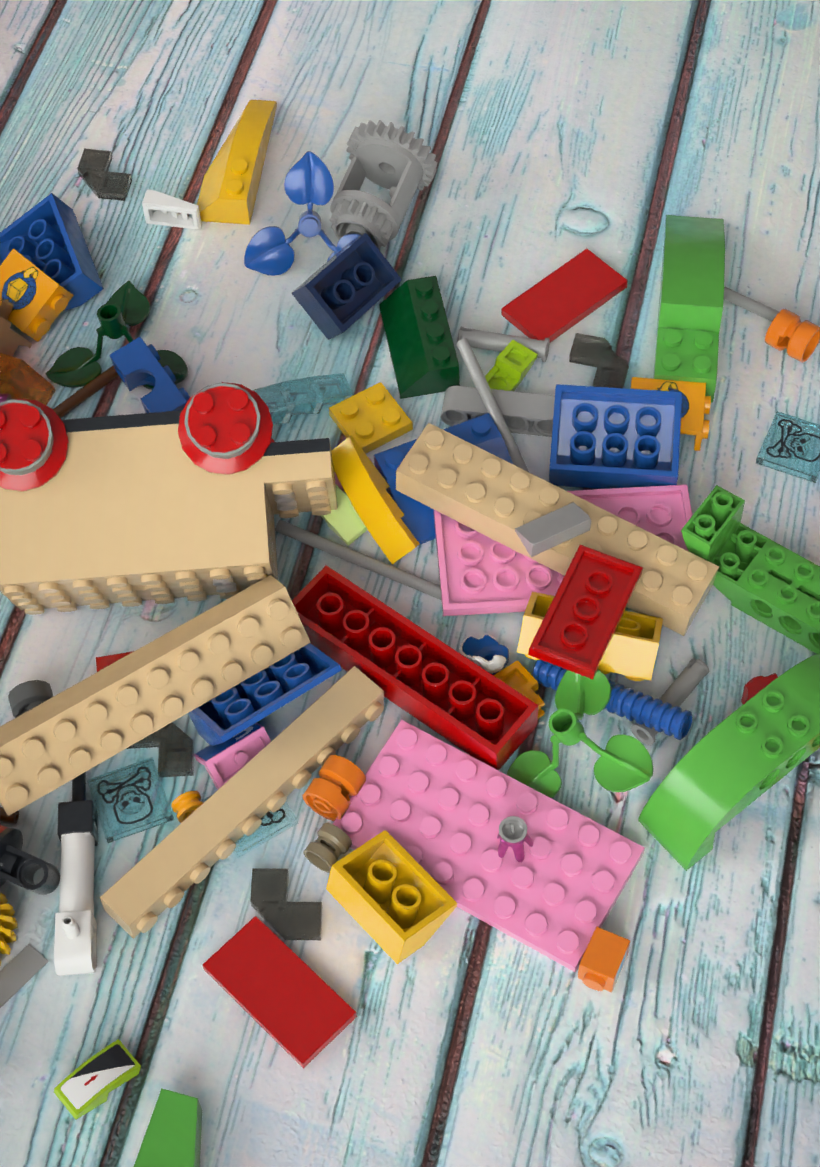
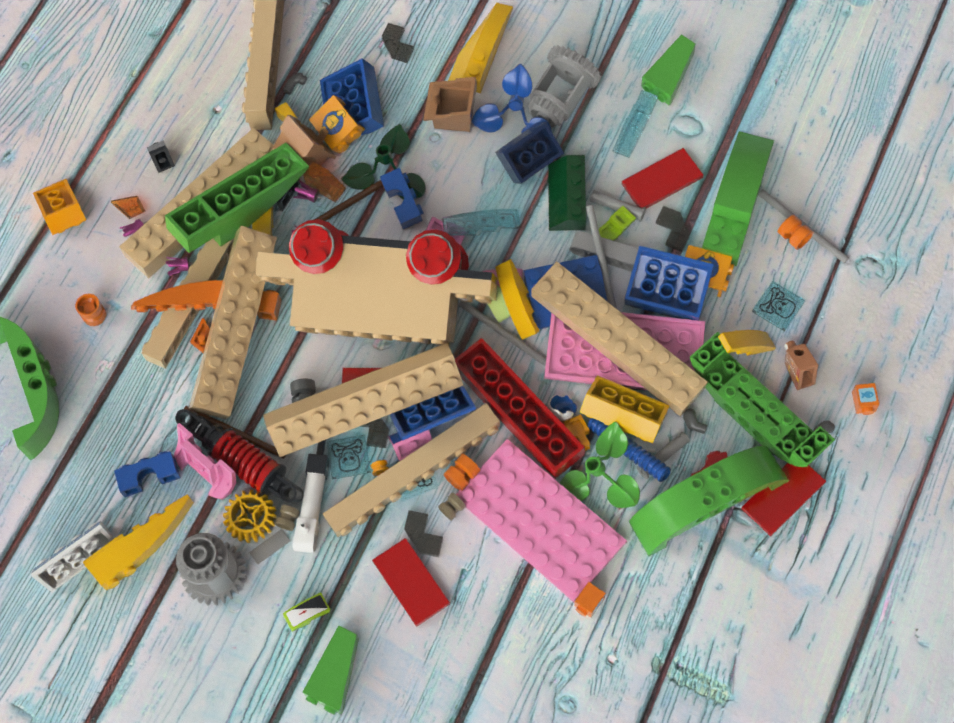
camera: 15 degrees right, 10 degrees up
(36, 920) = (287, 517): none -> dark tan wheel
(166, 210) = (426, 74): white slope -> none
(208, 237) = (451, 104): none -> medium nougat piece
(371, 417) = (528, 241): yellow plate -> none
(390, 895) = (480, 541): yellow slope -> none
(503, 227) = (635, 124): none -> clear light blue slope
(513, 834) = (553, 521): piece -> none
(538, 148) = (668, 71): none -> bright green slope
(553, 529) = (615, 343): light grey slope -> none
(585, 611) = (622, 398): red tile -> none
(705, 643) = (692, 422): none -> dark grey arm
(764, 498) = (746, 342): none -> yellow slope

